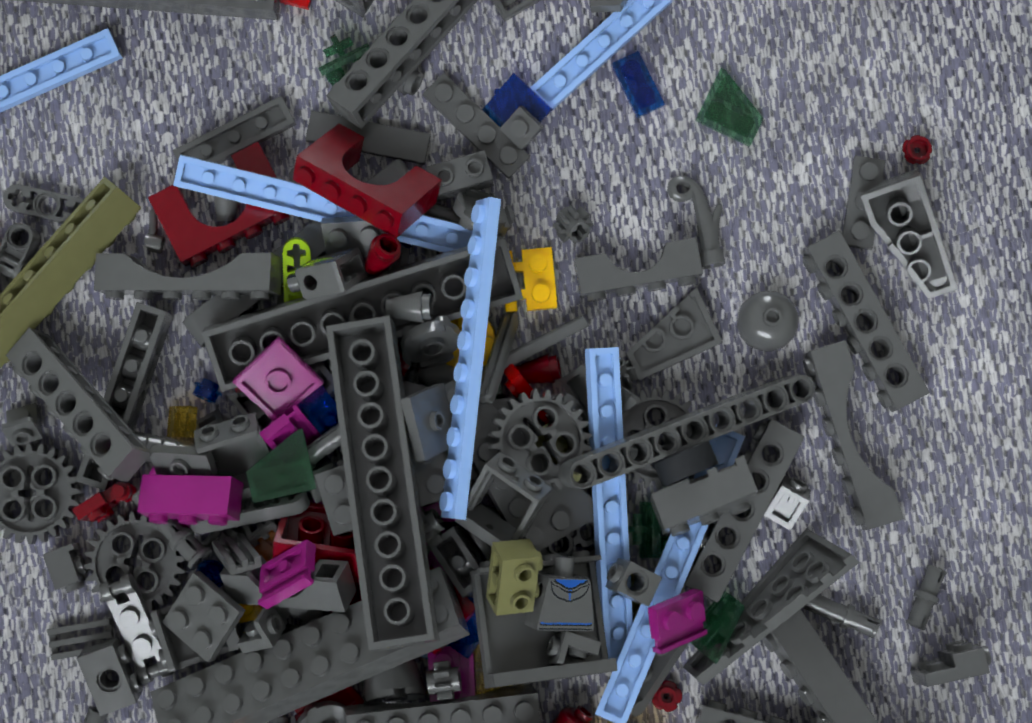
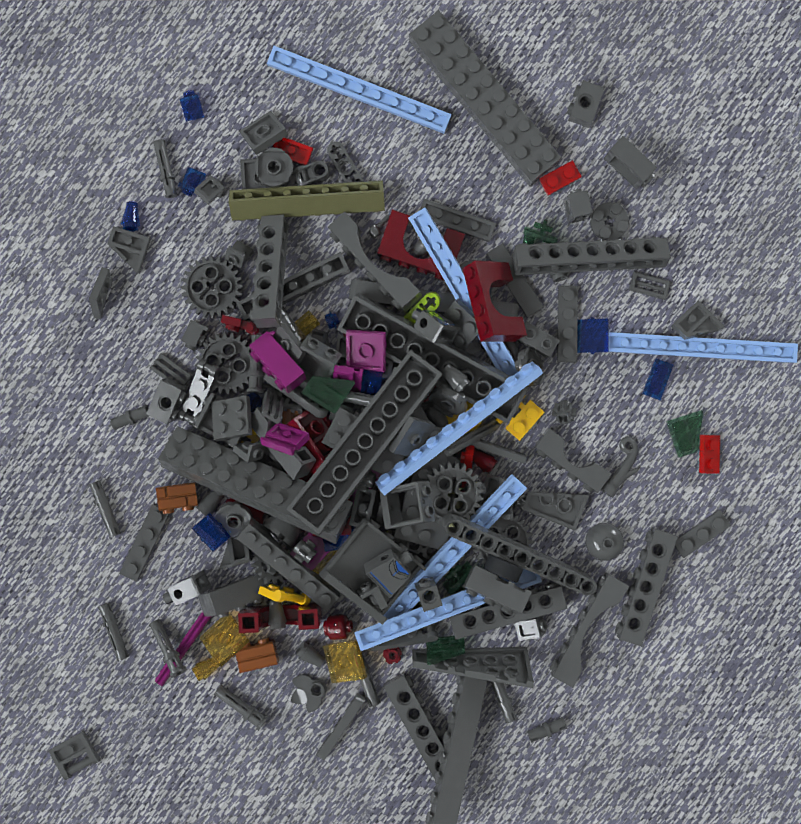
camera: 50 degrees right, 5 degrees up
(382, 253) = (468, 341): dark red cone -> none
(513, 576) = (379, 541): olive brick -> none
(521, 127) = (586, 346): dark grey plate -> none
(677, 620) = (430, 630): magenta plate -> none
(779, 107) = (709, 454): none -> red plate
(906, 223) = (709, 565): dark grey wedge -> none
(917, 142) = (754, 535): dark red plate -> none
(956, 663) = (530, 771): dark grey plate -> none

